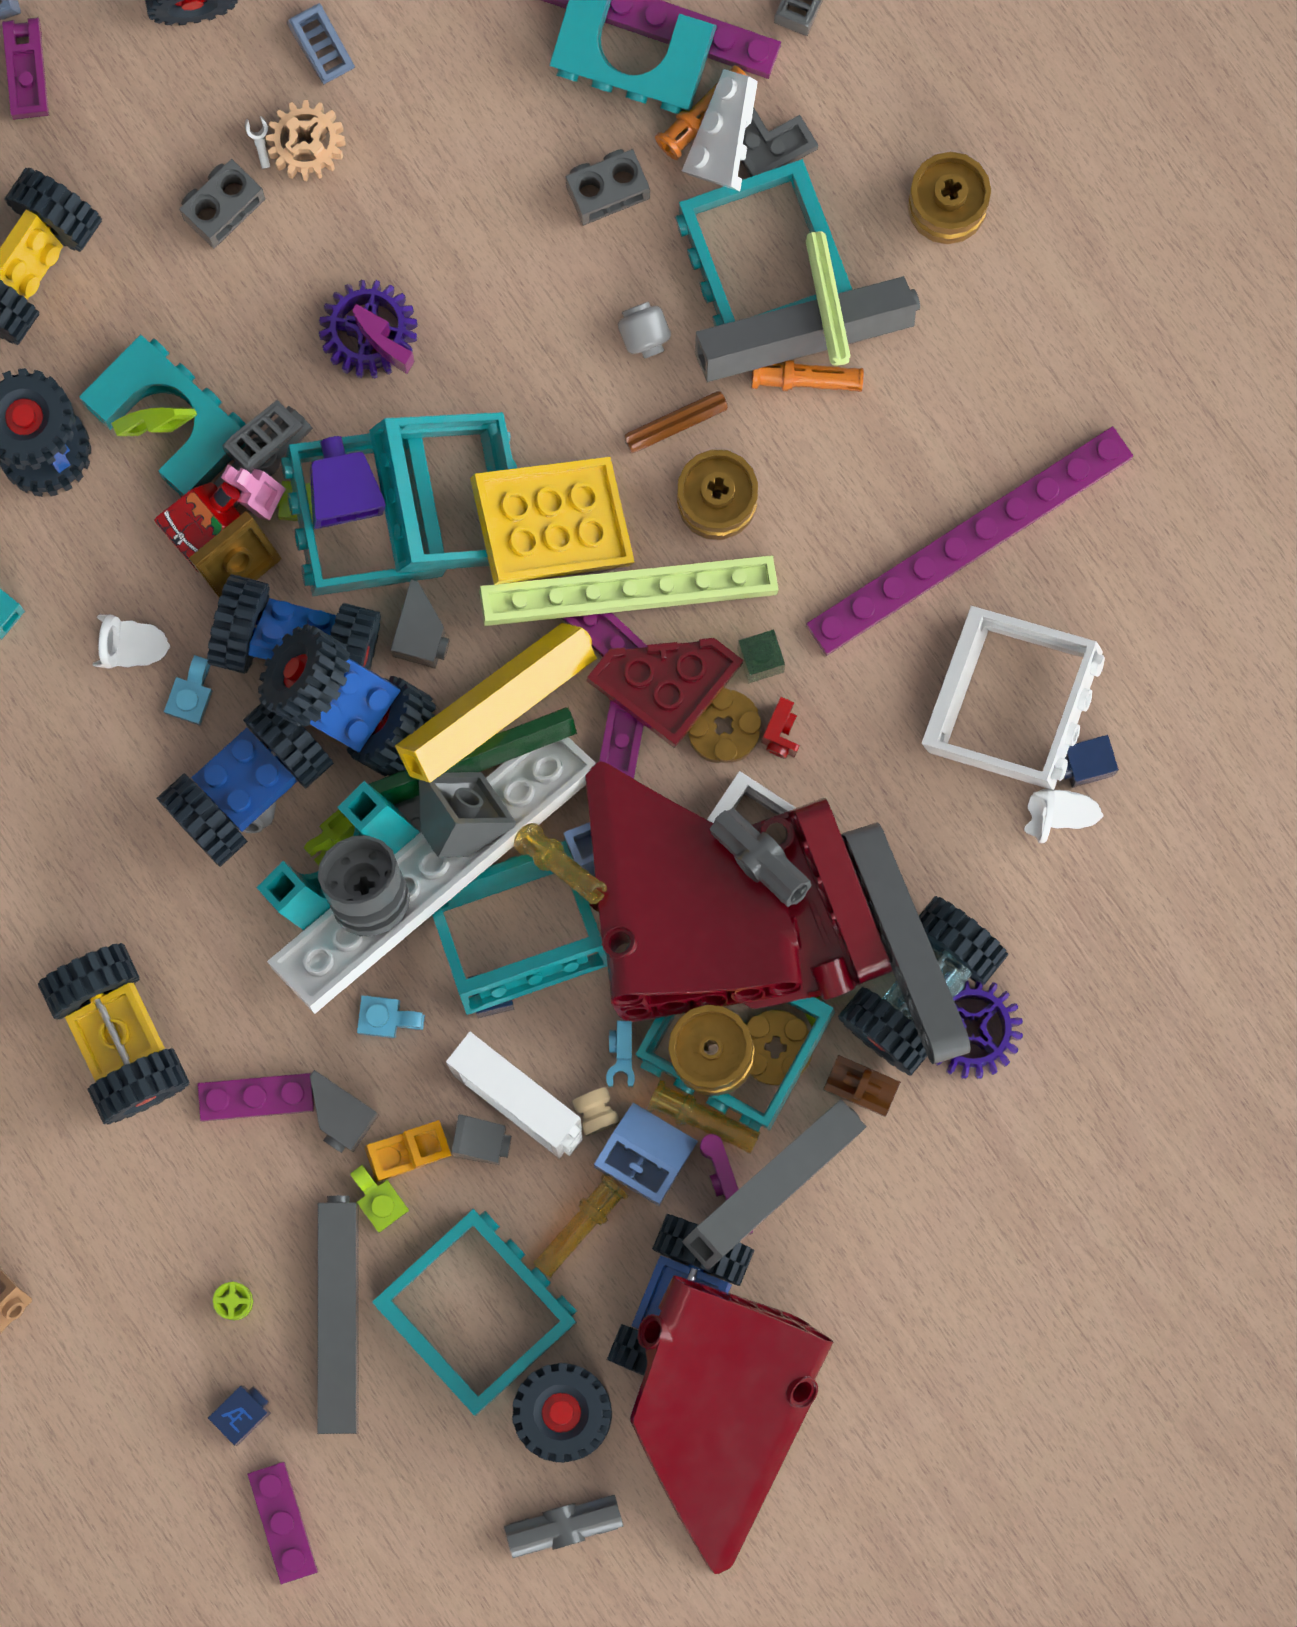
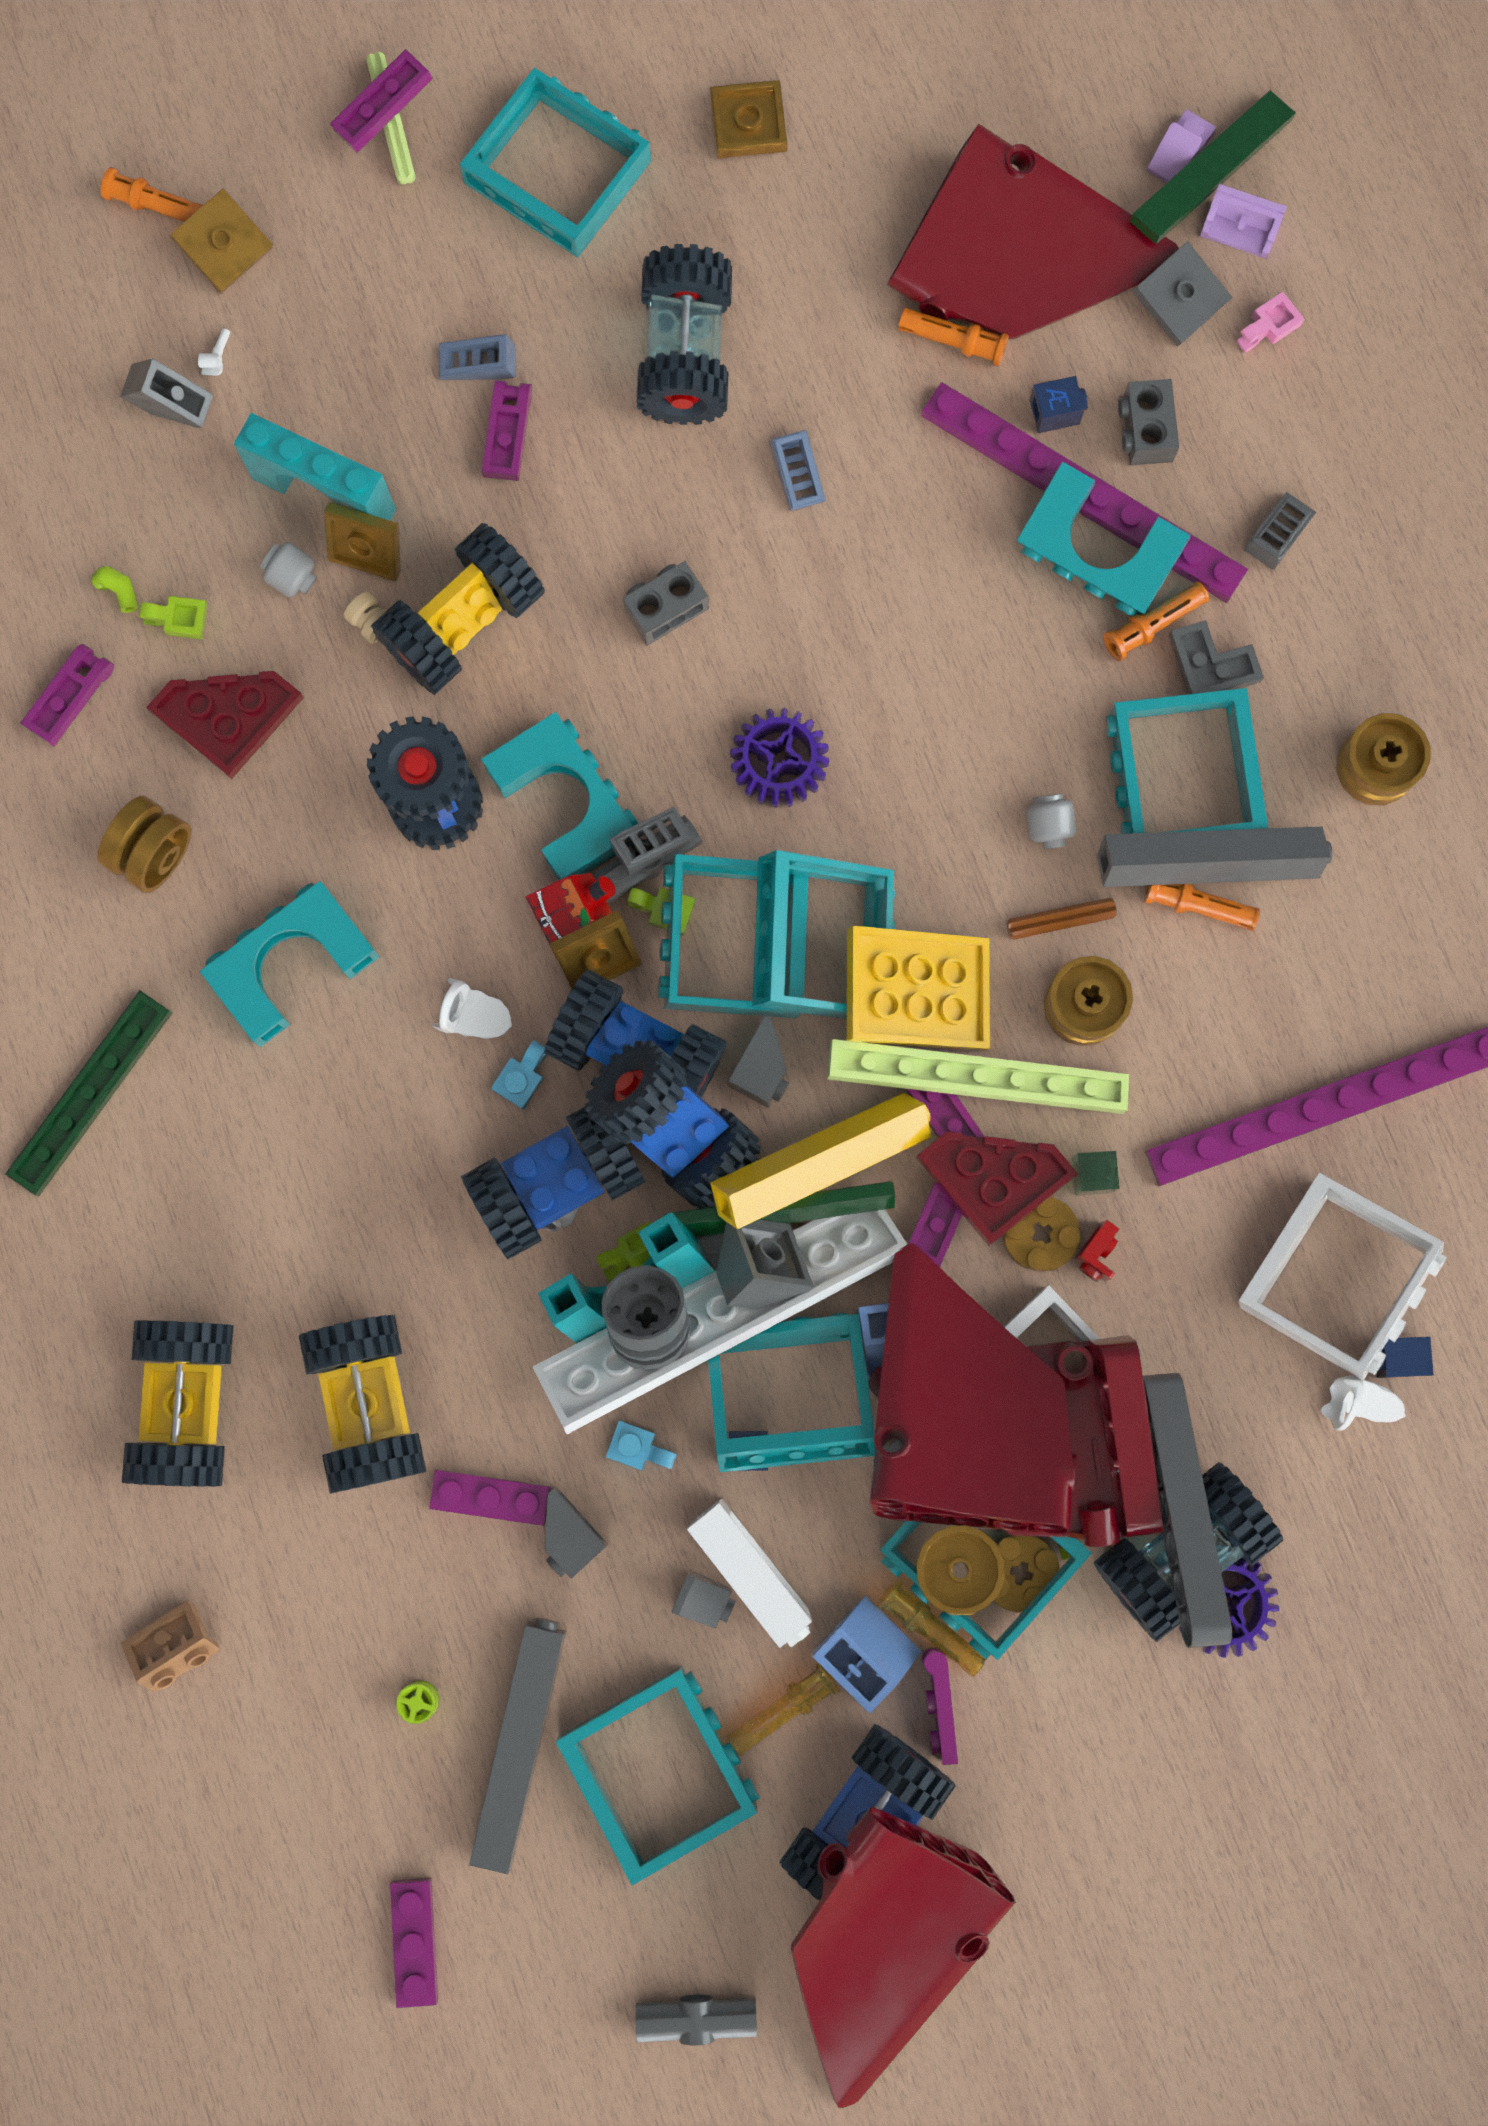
camera: 15 degrees right, 0 degrees up
(152, 420) = (547, 799): lime slope -> none
(240, 1414) = (397, 1821): dark blue brick -> none
(259, 141) = (716, 552): white hand -> none
(259, 490) = (634, 893): bright pink plate -> none
(296, 129) = (767, 545): light nougat gear -> none
(343, 486) = (719, 908): dark purple torso -> none
(376, 332) = (787, 762): magenta slope -> none
(381, 1202) = (589, 1635): lime plate -> none
(407, 1151) = (628, 1589): light orange slope -> none
(550, 855) = (840, 1329): clear yellow pin -> none
(561, 1412) = (722, 1918): black plate -> none
(596, 1113) = (826, 1600): tan wheel -> none
(612, 194) = (1049, 681): dark grey brick -> none
(621, 1043) = (867, 1533): medium azure plate -> none
(720, 138) = (1171, 646): white wing -> none
(760, 857) = (1055, 1385): dark grey piece -> none
(774, 1184) = (991, 1727): dark grey brick -> none
(828, 298) = (1244, 832): yellowish green axle -> none
(861, 1085) = (1101, 1636): reddish brown hips -> none

